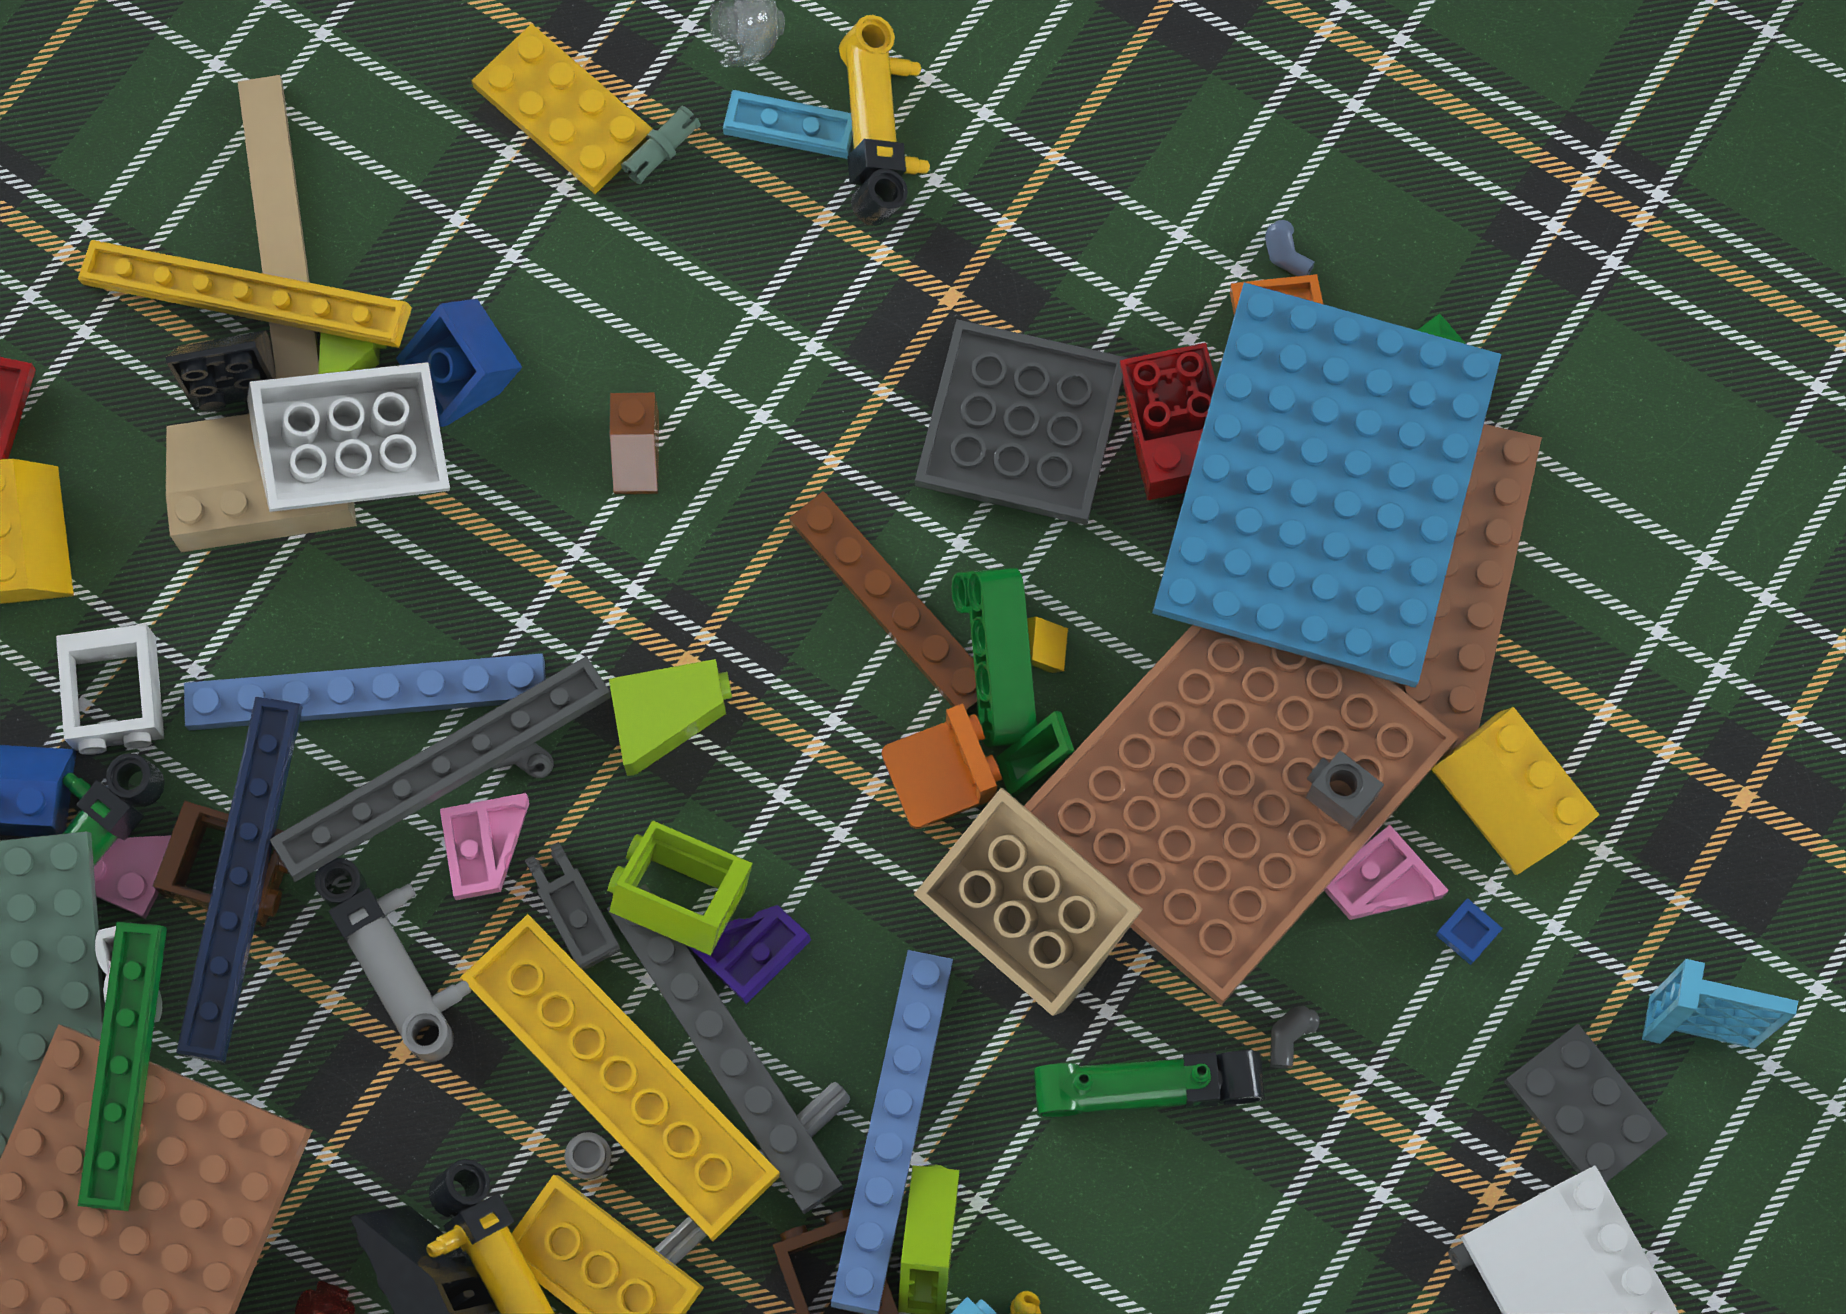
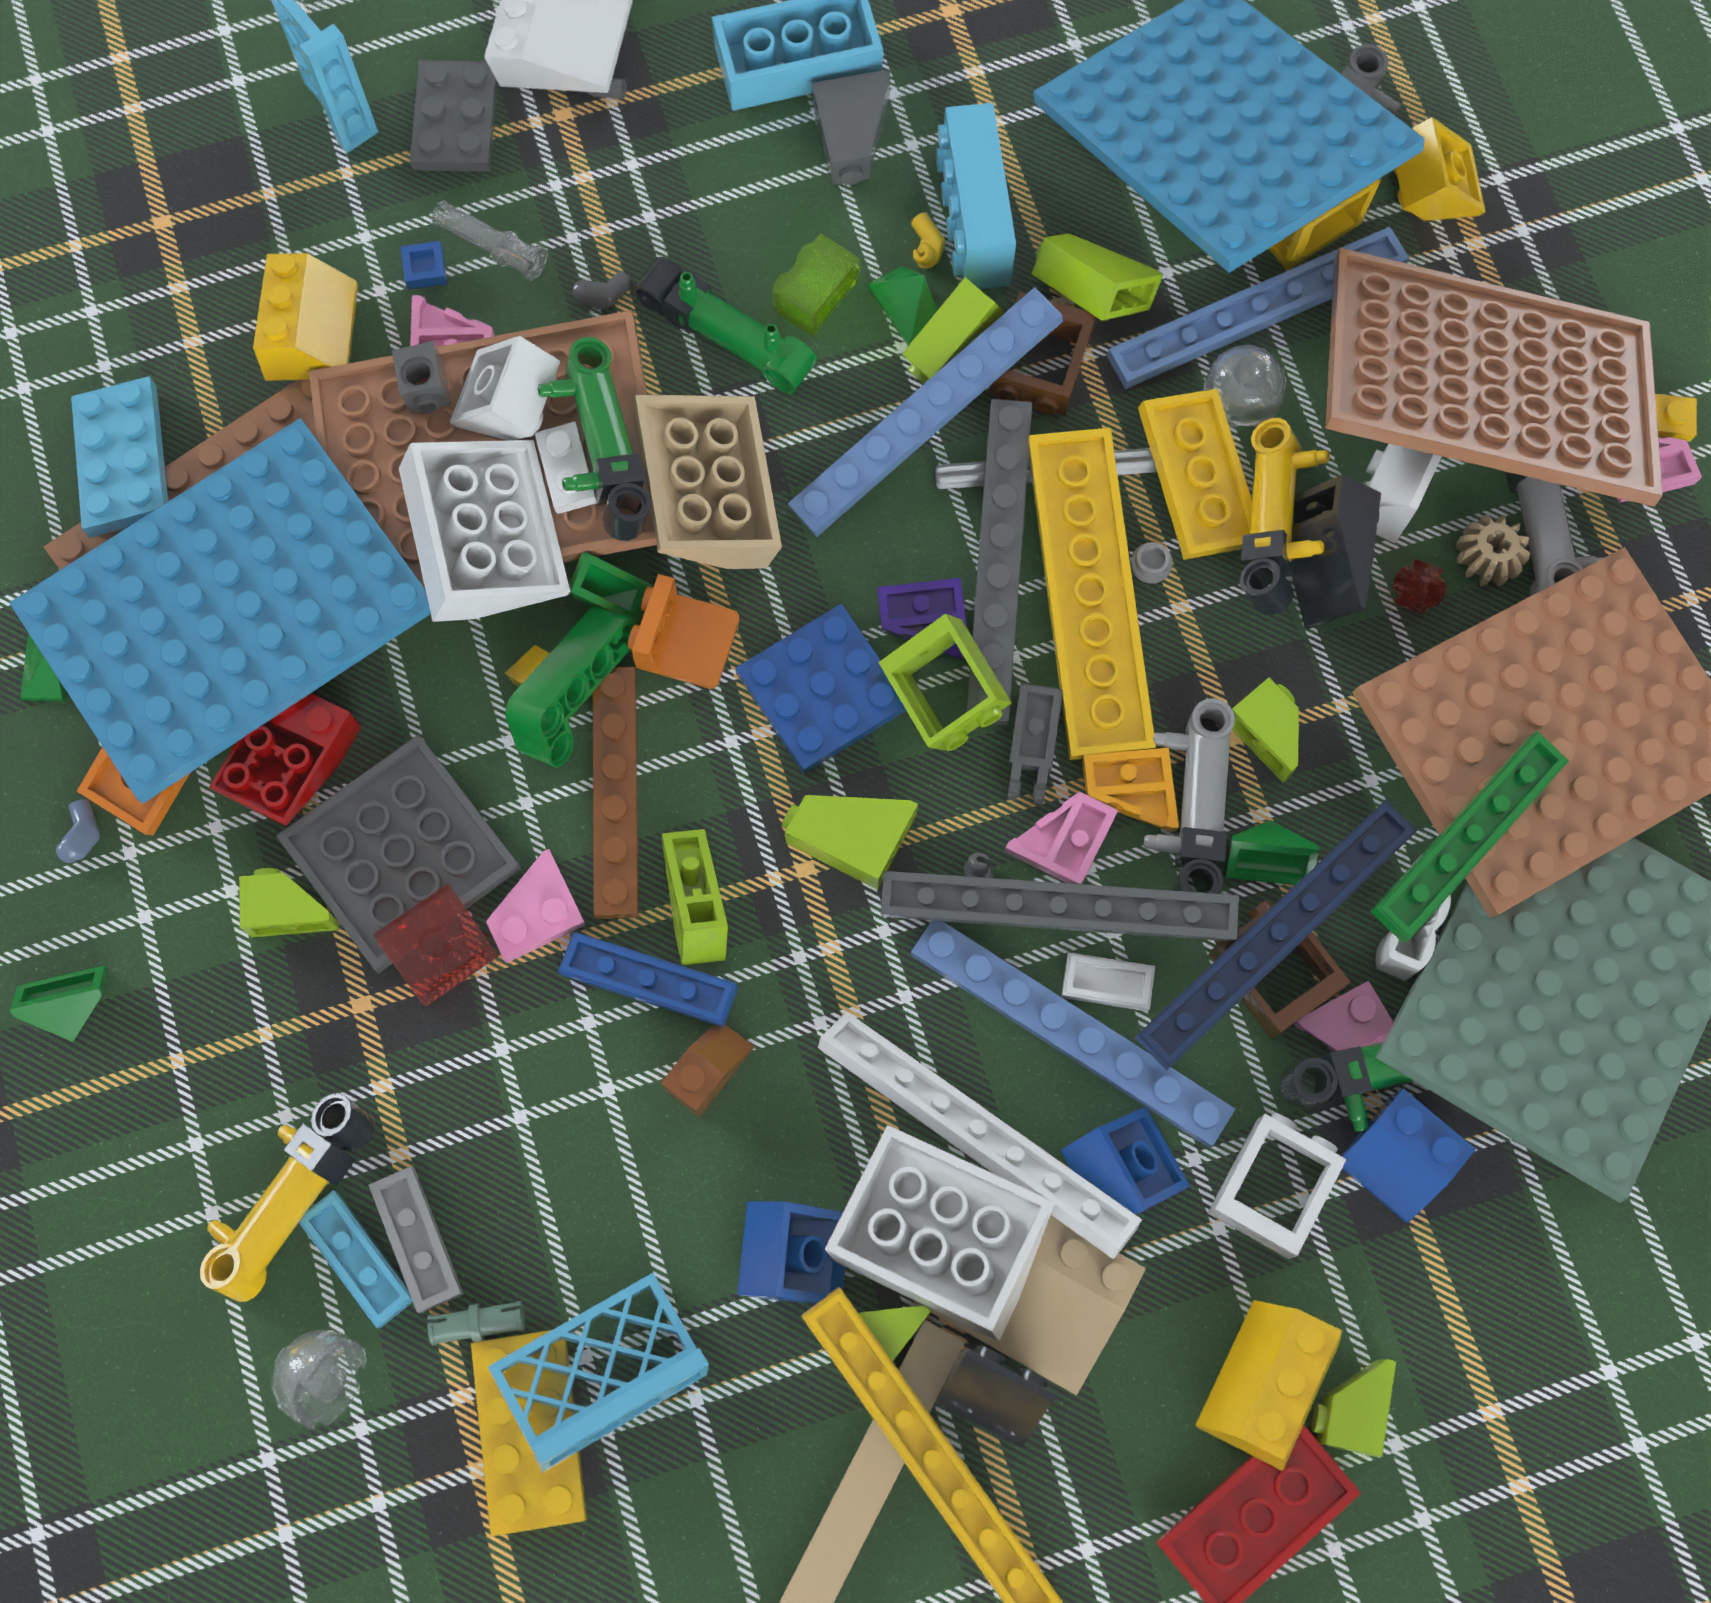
camera: 145 degrees left, 0 degrees up
(241, 612) = (1128, 1162): none -> blue slope
(298, 965) = (1270, 855): none -> green slope
(362, 755) = (1108, 981): none -> white tile
(375, 1074) = (1270, 727): none -> lime slope
(377, 542) = (979, 1133): none -> white plate
(456, 933) = (1134, 784): none -> light orange wing
(504, 158) = (620, 1405): none -> medium azure fence
(737, 475) = (648, 979): none -> blue tile
(755, 165) = (415, 1239): none -> light grey plate
(755, 564) = (694, 898): none -> lime slope
(793, 818) = (821, 688): none -> blue plate
(874, 463) = (534, 911): none -> bright pink wing
(923, 369) = (435, 945): none -> clear red plate
(1005, 1244) = (905, 301): none -> green slope
(1074, 311) = (278, 906): none -> lime slope
(1101, 1190) = (815, 284): none -> clear neon green brick
(1131, 850) = (616, 470): none -> green piece
(1150, 809) = (561, 458): none -> white plate
(1169, 700) = (481, 527): none -> white slope
(1180, 126) = (60, 1002): none -> green slope
(1259, 831) = (503, 390): none -> white slope
(1414, 1005) = (504, 246): none -> clear pin
(1553, 554) = (118, 455): none -> medium azure plate

